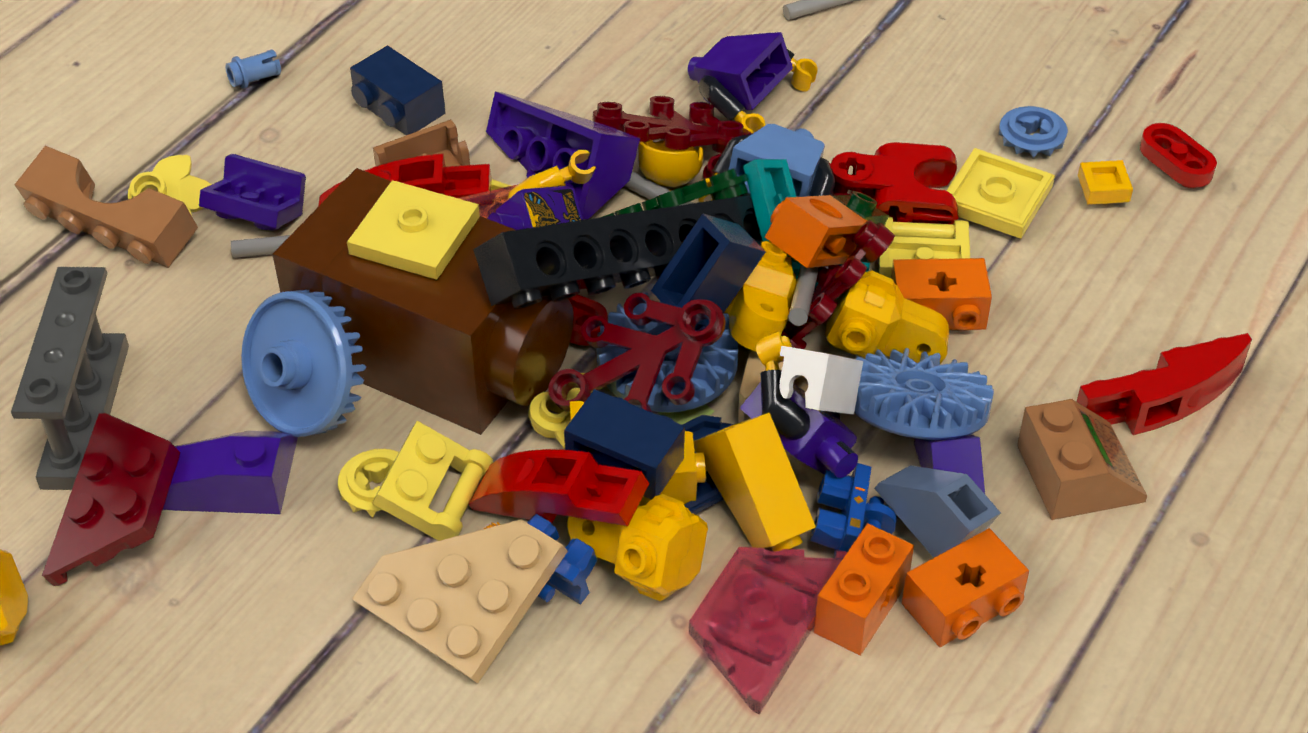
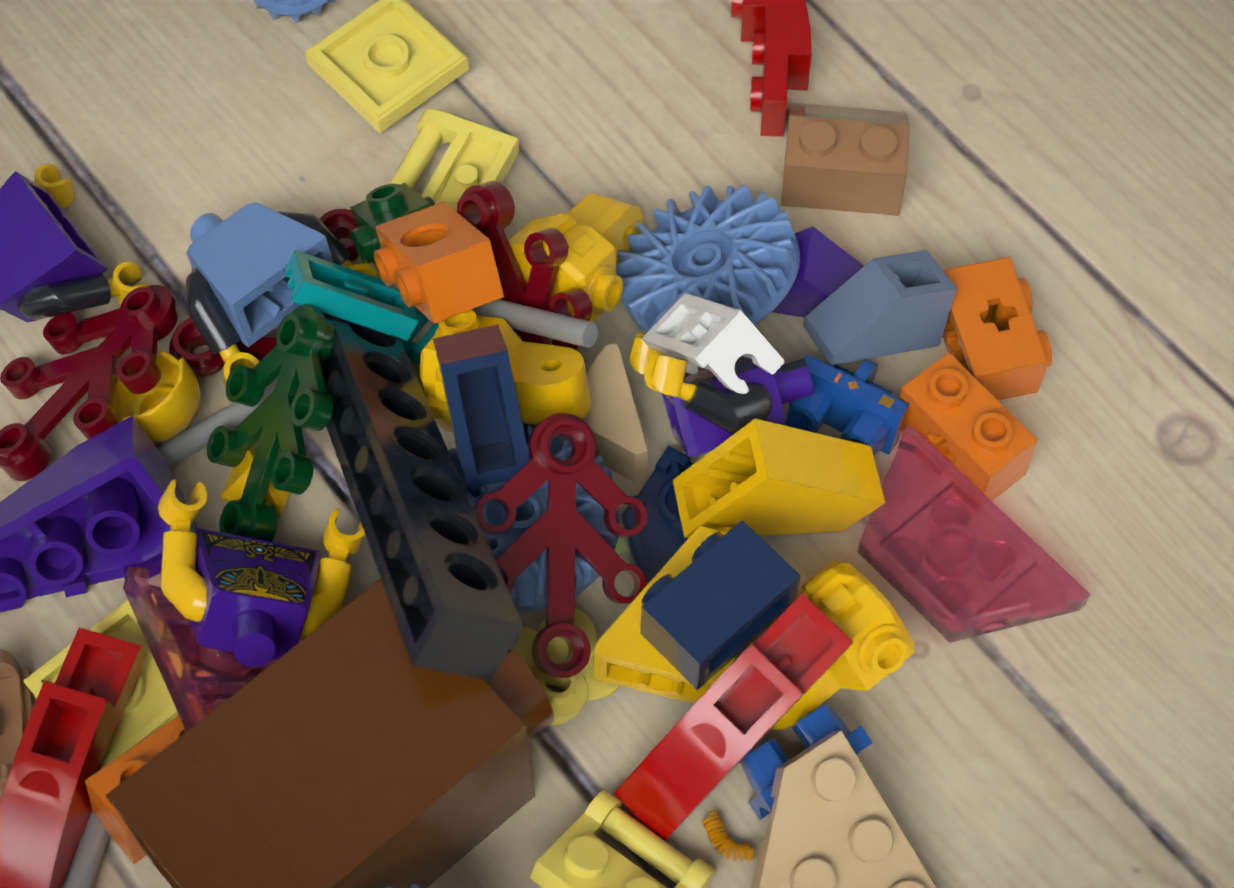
camera: 70 degrees left, 15 degrees up
(414, 229) = (293, 743): light yellow plate -> none
(902, 180) = (324, 166): red piece -> none
(948, 286) = (545, 169): orange brick -> none

